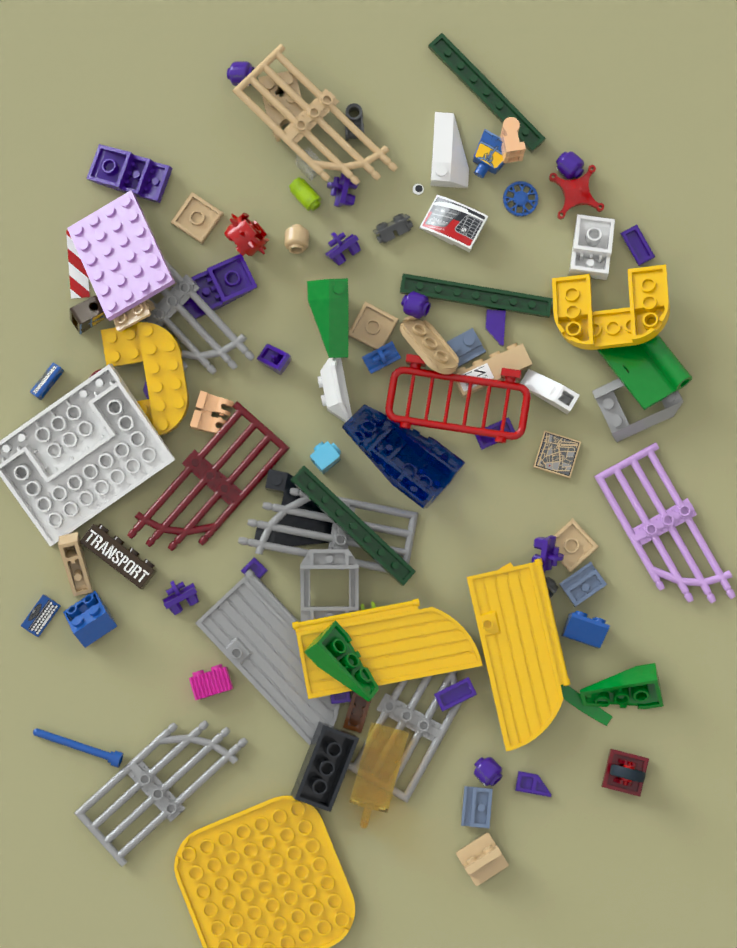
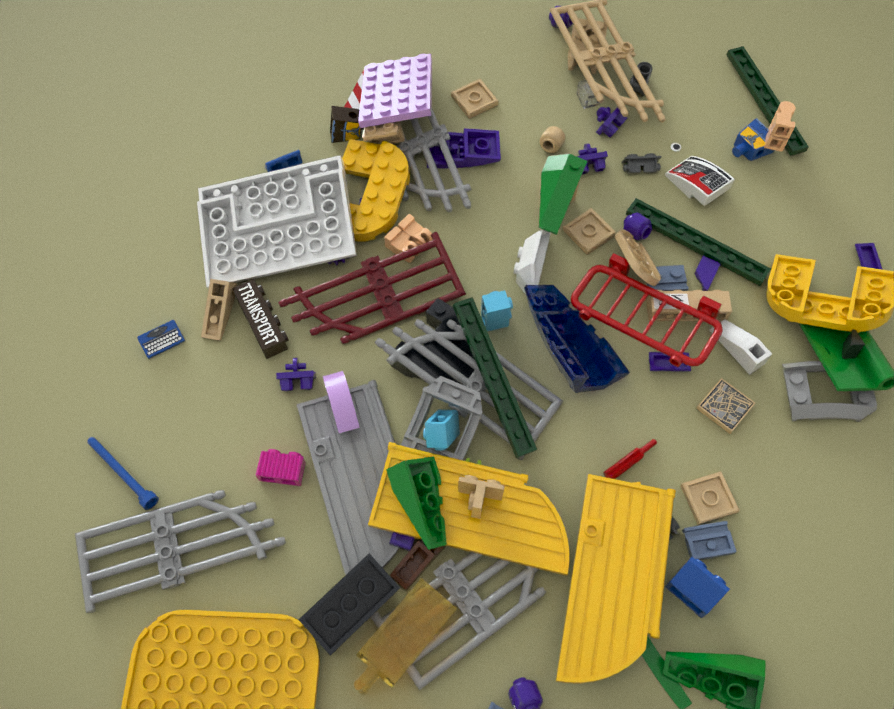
camera: 25 degrees right, 20 degrees down
(89, 619) = (202, 360): blue slope -> none
(128, 172) = (445, 52): dark purple slope -> none
(232, 605) = (341, 402): none -> lavender arch
(246, 235) = (510, 117): red brick -> none
(256, 567) = (382, 383): dark purple tile -> none
(274, 358) = (489, 221): dark purple slope -> none
(305, 194) = (575, 112): lime head -> none
(330, 591) = (441, 429): none -> medium azure brick
(381, 357) = (586, 253): blue hips -> none
(388, 644) = (479, 490): none -> tan bracket
(448, 155) = (712, 132): white wedge -> none
(455, 694) = (525, 591): dark purple tile -> none
(494, 543) = (628, 461): none -> red axle
(520, 198) = (767, 185): blue wheel -> none
(549, 552) = (684, 490): dark purple hips -> none
(570, 165) = (824, 174): dark purple head -> none
(576, 192) = (823, 196): red piece -> none
(592, 246) = (825, 243): white slope -> none
(645, 356) = (852, 345): none -> pearl dark grey slope
(661, 523) = (819, 516): lavender piece -> none

